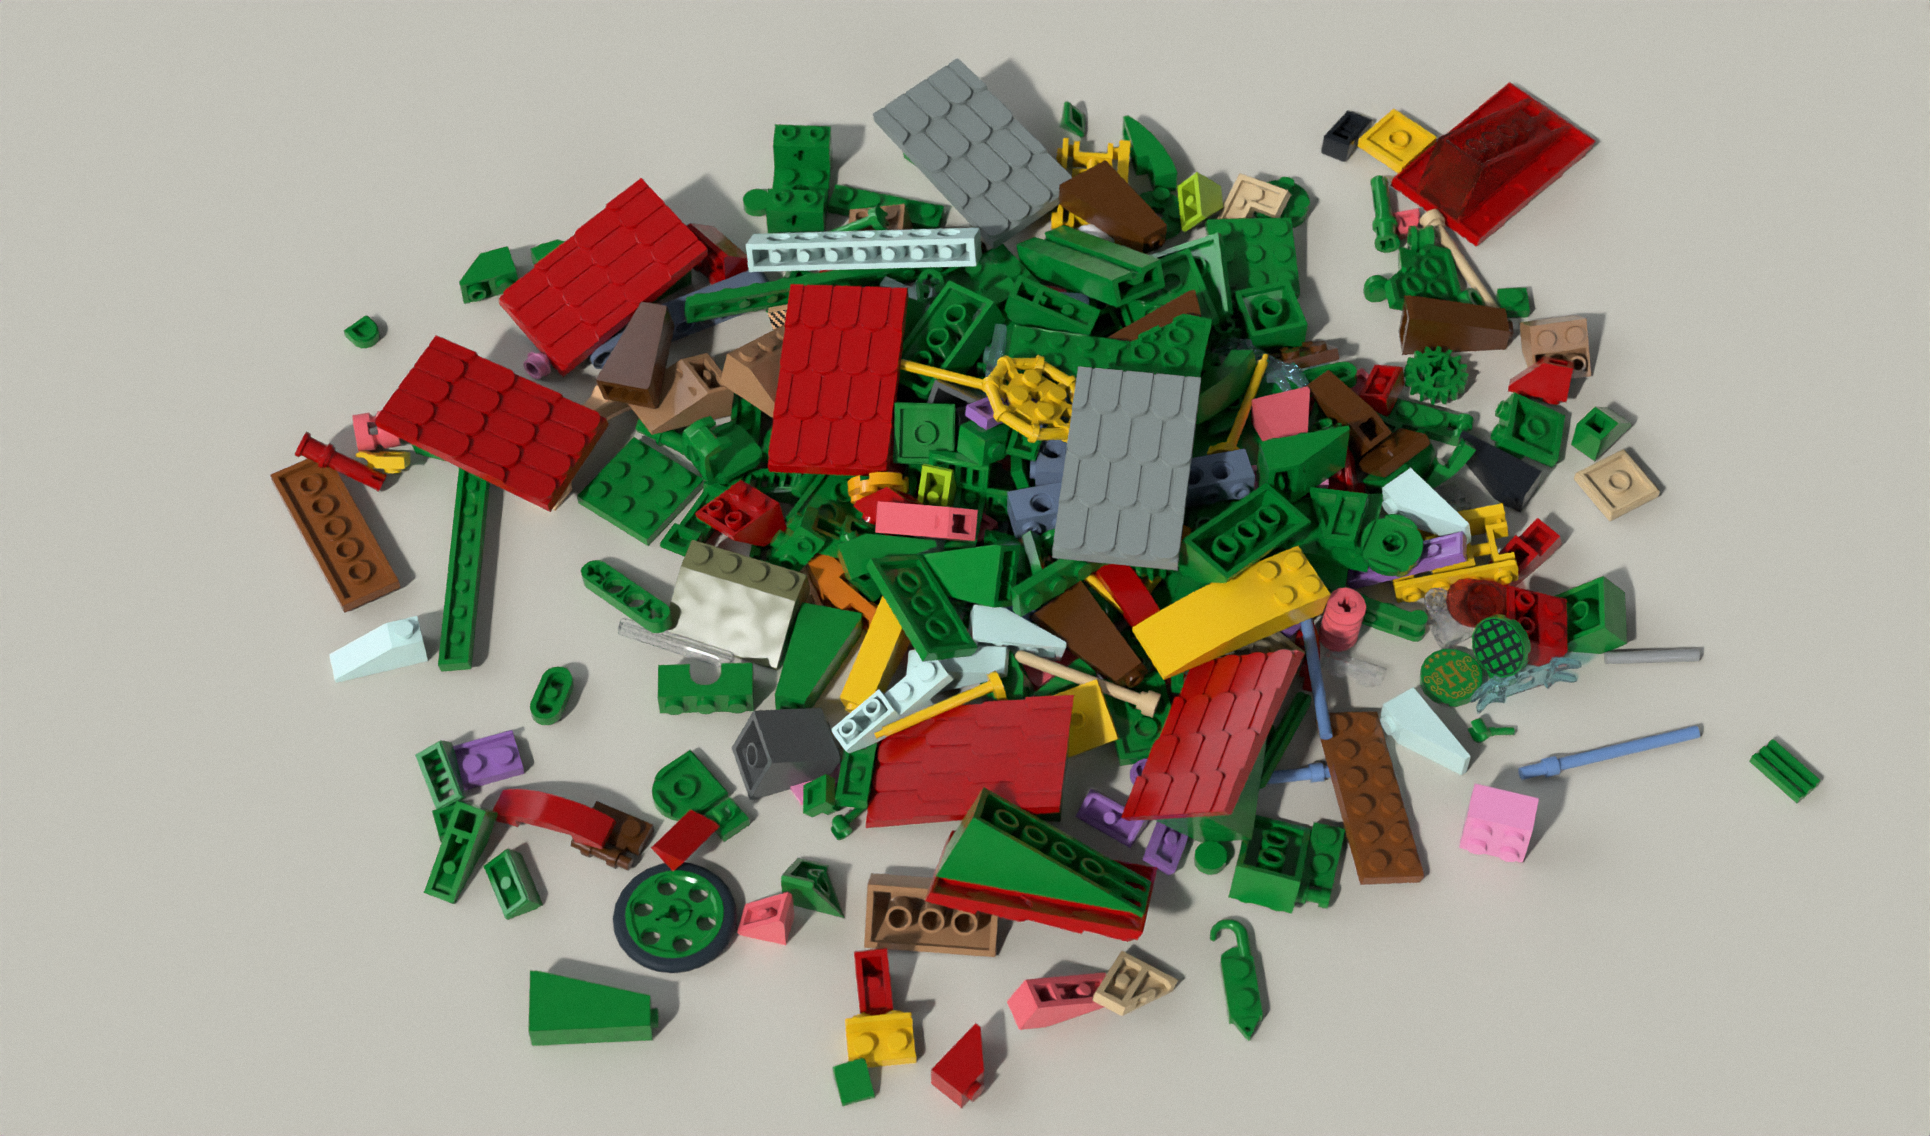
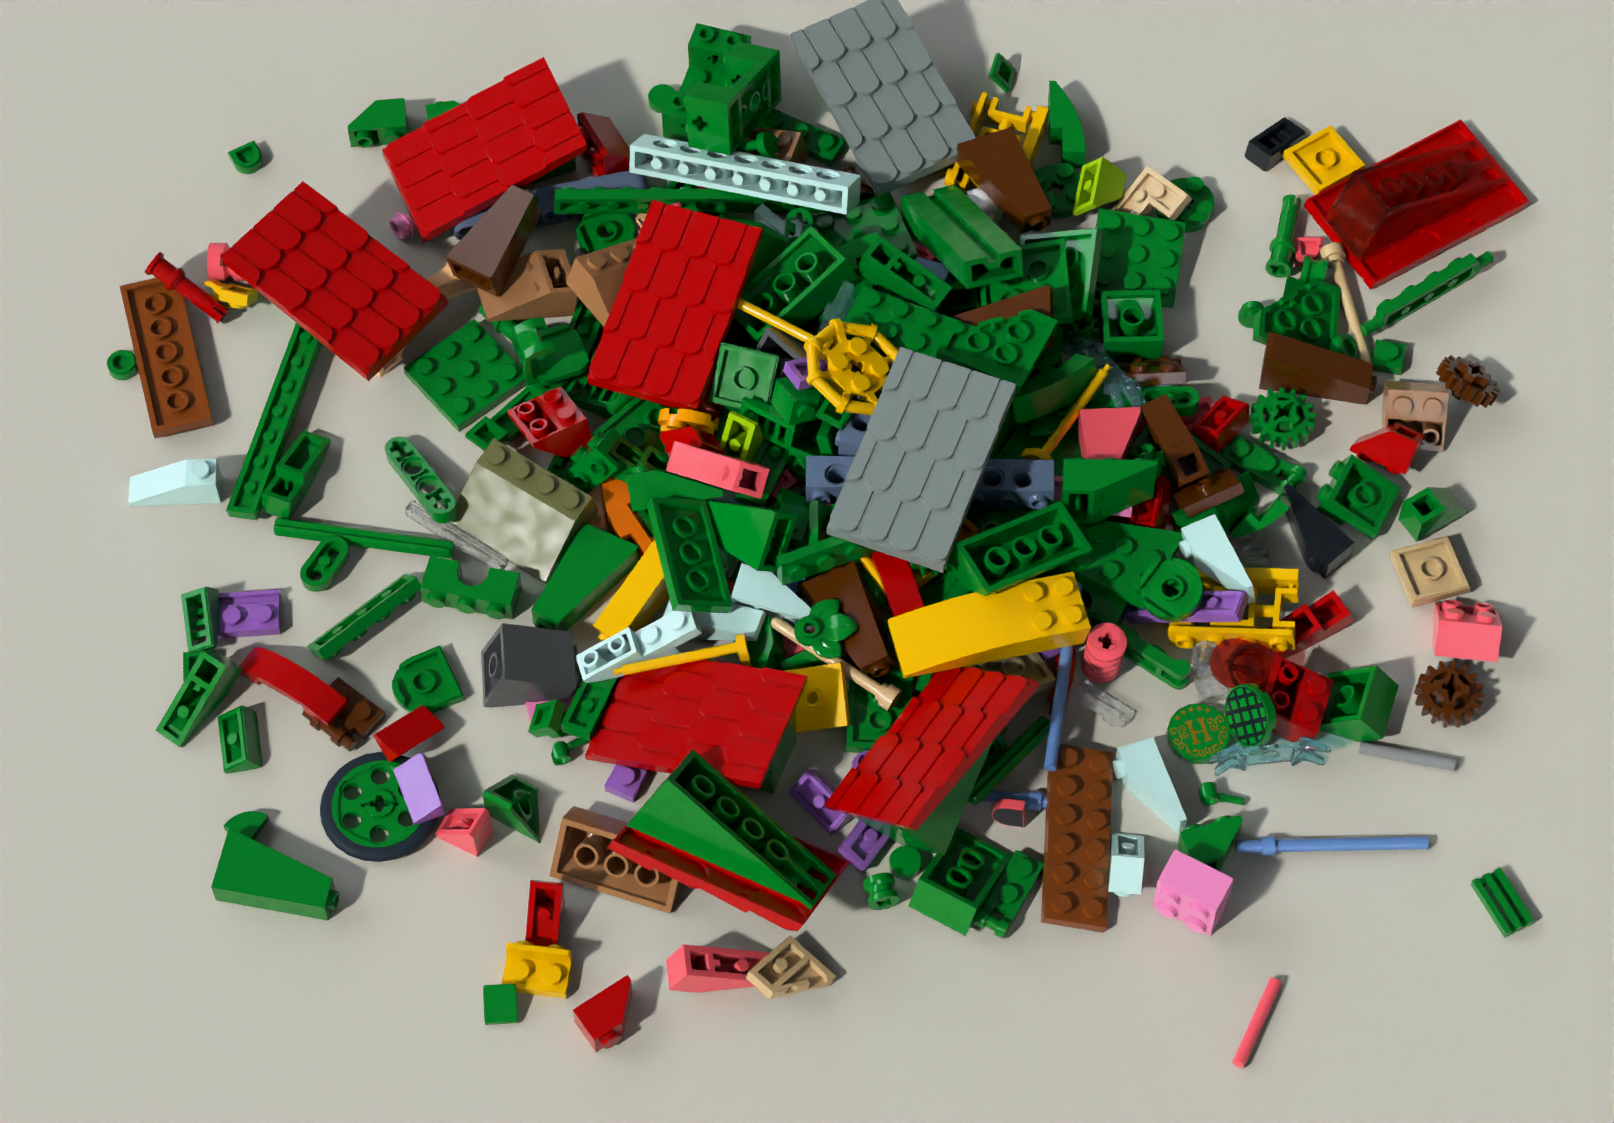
camera: 15 degrees right, 5 degrees up
(292, 549) = (122, 365): none -> green tile
(497, 618) = (294, 475): none -> green slope
(545, 961) = (247, 823): none -> green tile
(583, 663) = (365, 537): none -> green axle
(614, 730) = (356, 623): none -> green plate
(712, 890) = (418, 790): none -> slope
(724, 331) = (592, 224): none -> green plate
(729, 818) = (457, 721): green tile -> none
(835, 192) = (727, 115): none -> green plate
(913, 840) = (626, 782): none -> medium lavender plate
(1077, 650) = (829, 627): none -> green plate
(1197, 889) = (881, 891): none -> green wheel
(1239, 979) = (896, 988): green plate -> none
(1297, 787) = (1009, 812): none -> tile
(1339, 515) = (1129, 548): green wing -> none
(1425, 812) = (1126, 864): none -> light aqua slope
(1497, 771) = (1211, 841): none -> green slope
(1533, 233) = (1433, 287): none -> green plate
(1594, 934) = (1257, 1022): none -> coral bar
(1596, 307) = (1468, 381): none -> reddish brown gear
(1670, 530) = (1466, 631): none -> coral slope
(1673, 591) = (1435, 698): none -> reddish brown gear

